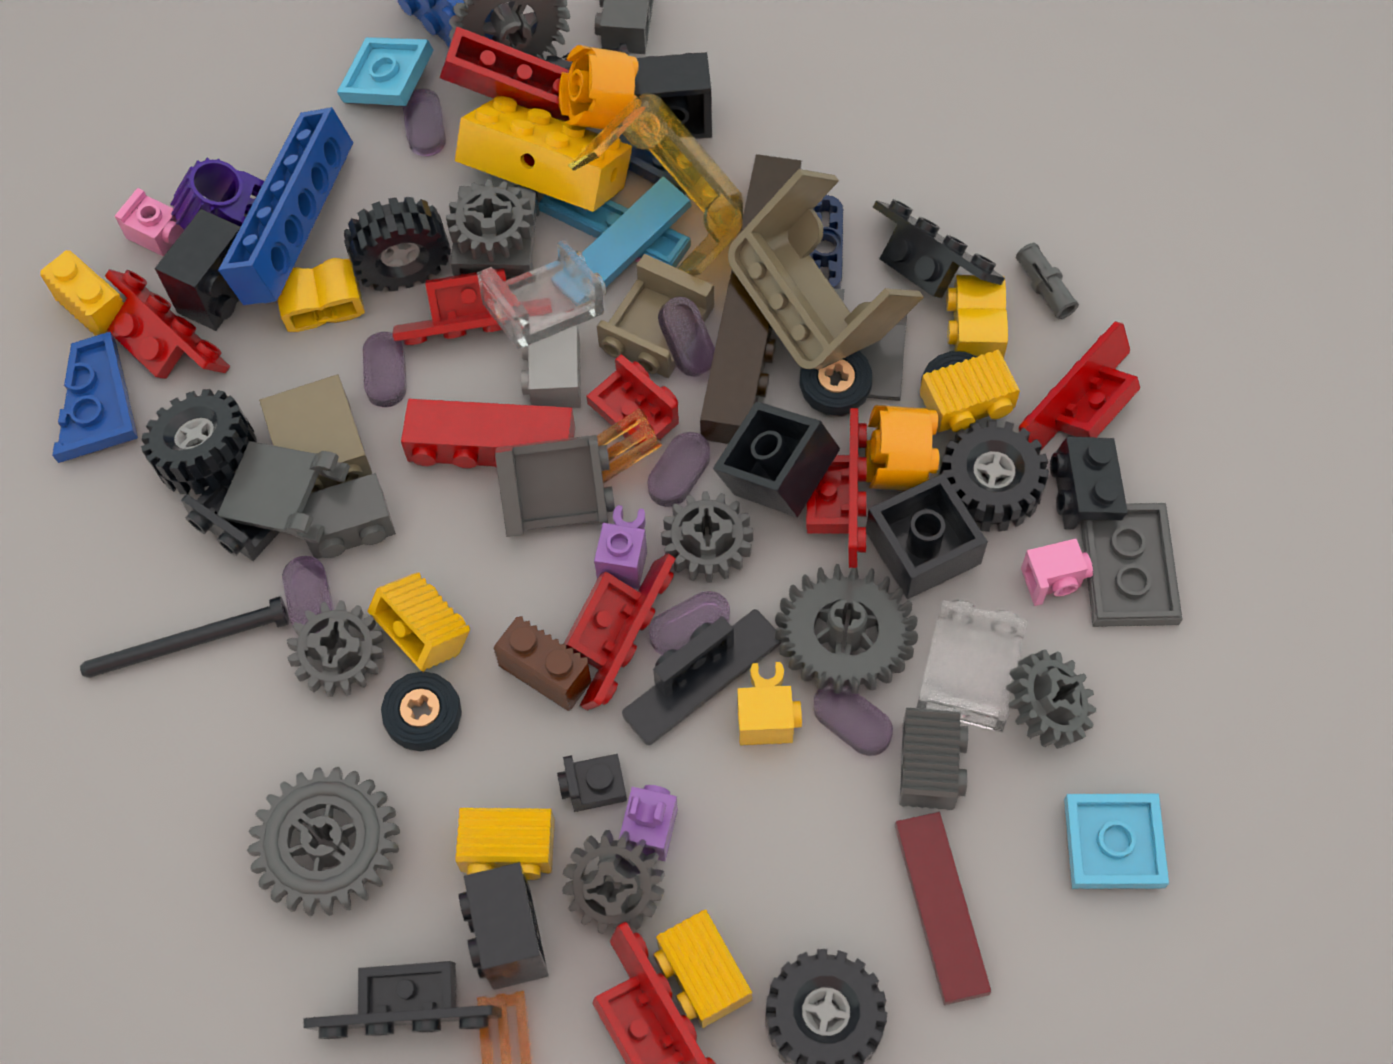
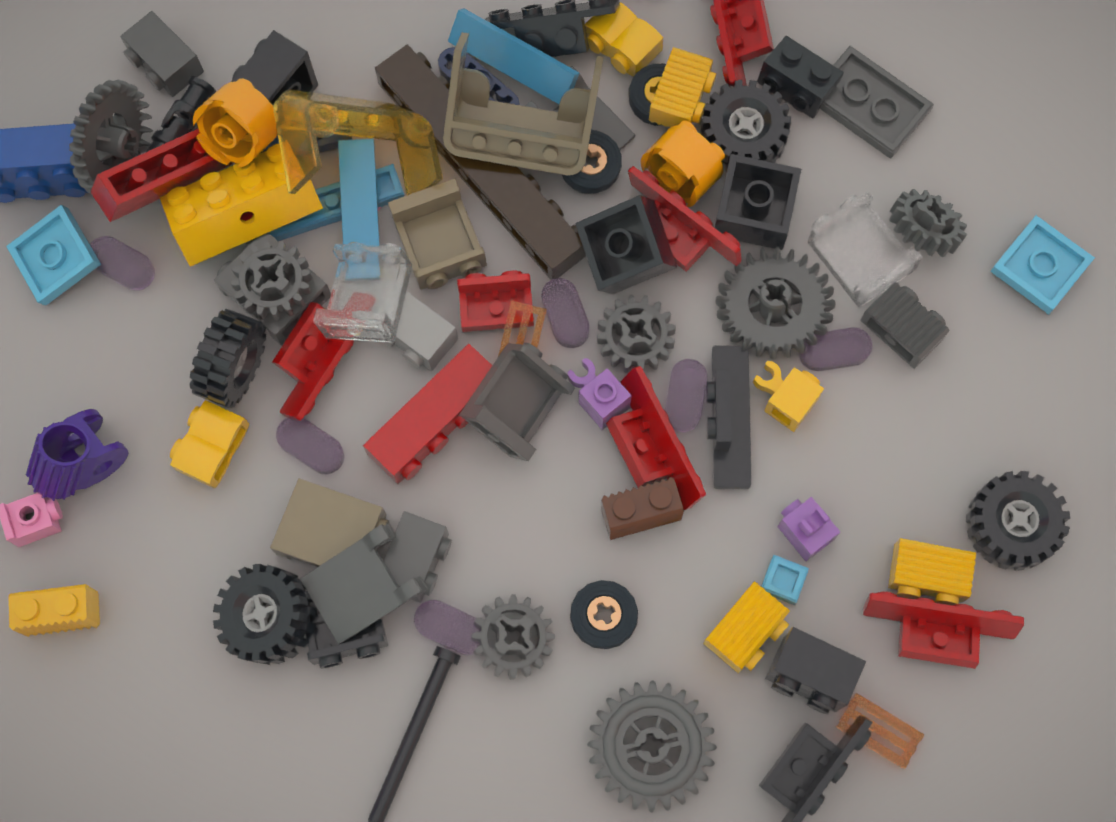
camera: 50 degrees left, 10 degrees up
(96, 400) = (155, 667): blue wing -> none
(154, 332) = (131, 583): red bracket -> none
(193, 274) = (123, 505): black brick -> none
(286, 207) = (123, 409): blue brick -> none
(419, 620) = (540, 565): yellow brick -> none
(576, 832) = (784, 579): none -> medium azure tile
(592, 782) = (747, 542): black bracket -> none
(614, 901) = (834, 580): dark grey gear -> none
(686, 336) = (473, 227): clear purple tile -> none
(869, 237) = (513, 56): none -> dark azure tile
(942, 908) = (1001, 398): dark red tile -> none
(1055, 569) = (842, 148): bright pink brick -> none

